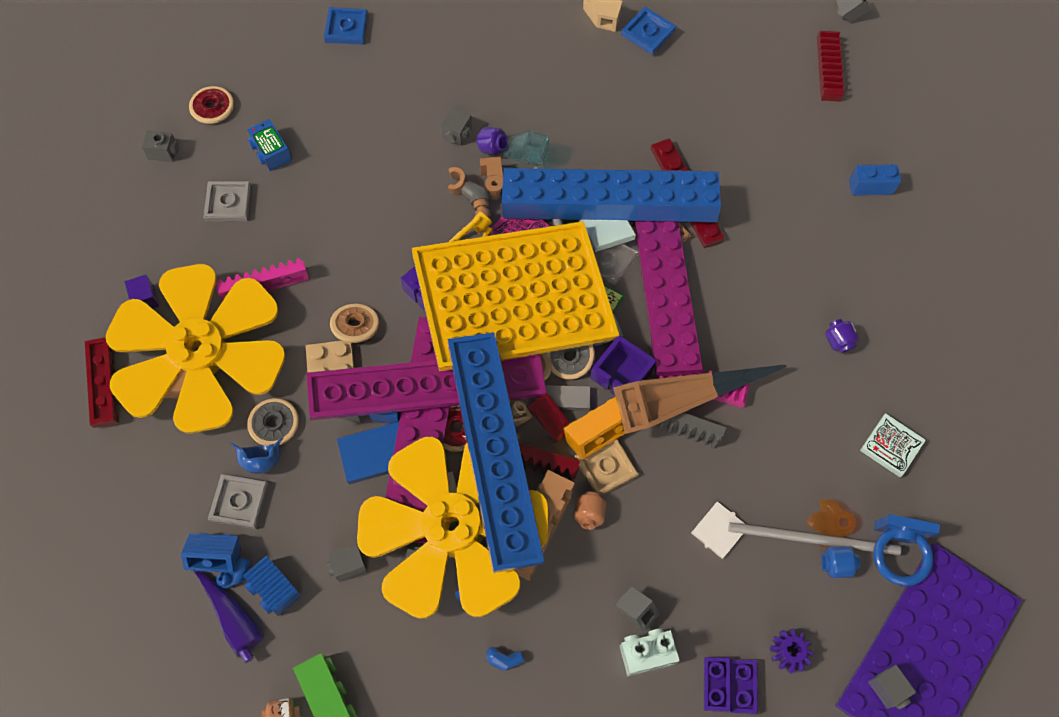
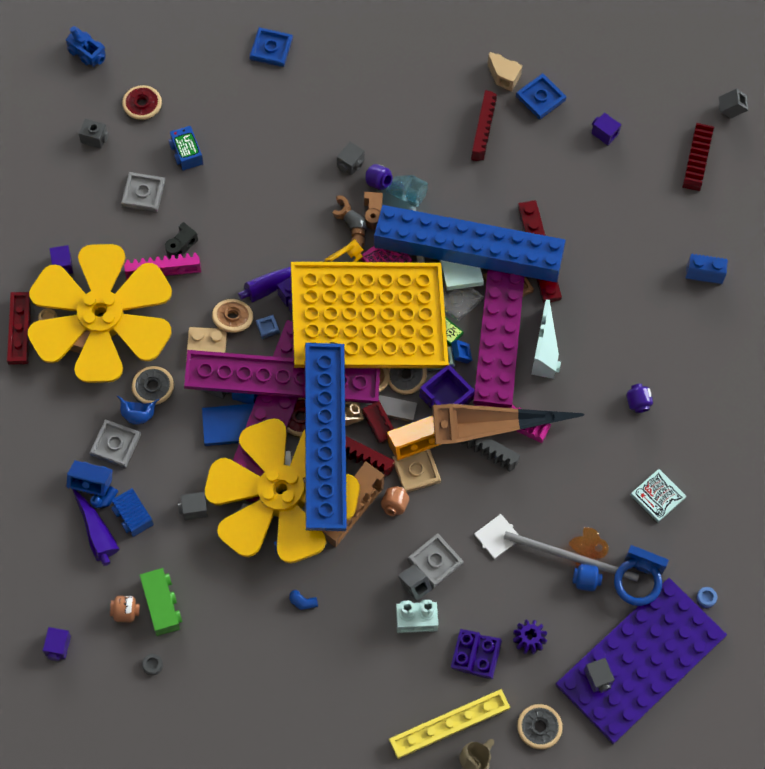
camera: 10 degrees right, 0 degrees up
(132, 359) = (47, 314): none -> tan plate
(137, 55) = (85, 47): none -> blue brick
(281, 248) = (182, 241): none -> pearl dark grey leg
(385, 281) = (264, 285): none -> dark purple piece
(398, 328) = (267, 327): none -> medium blue tile
(595, 70) = (484, 126): none -> dark red gear
(627, 318) = (461, 351): none -> blue plate
(654, 574) = (436, 560): none -> light grey tile
(723, 299) = (546, 353): none -> light aqua wedge
(725, 52) = (605, 128): none -> dark purple brick
(982, 558) = (706, 597): none -> medium blue tile

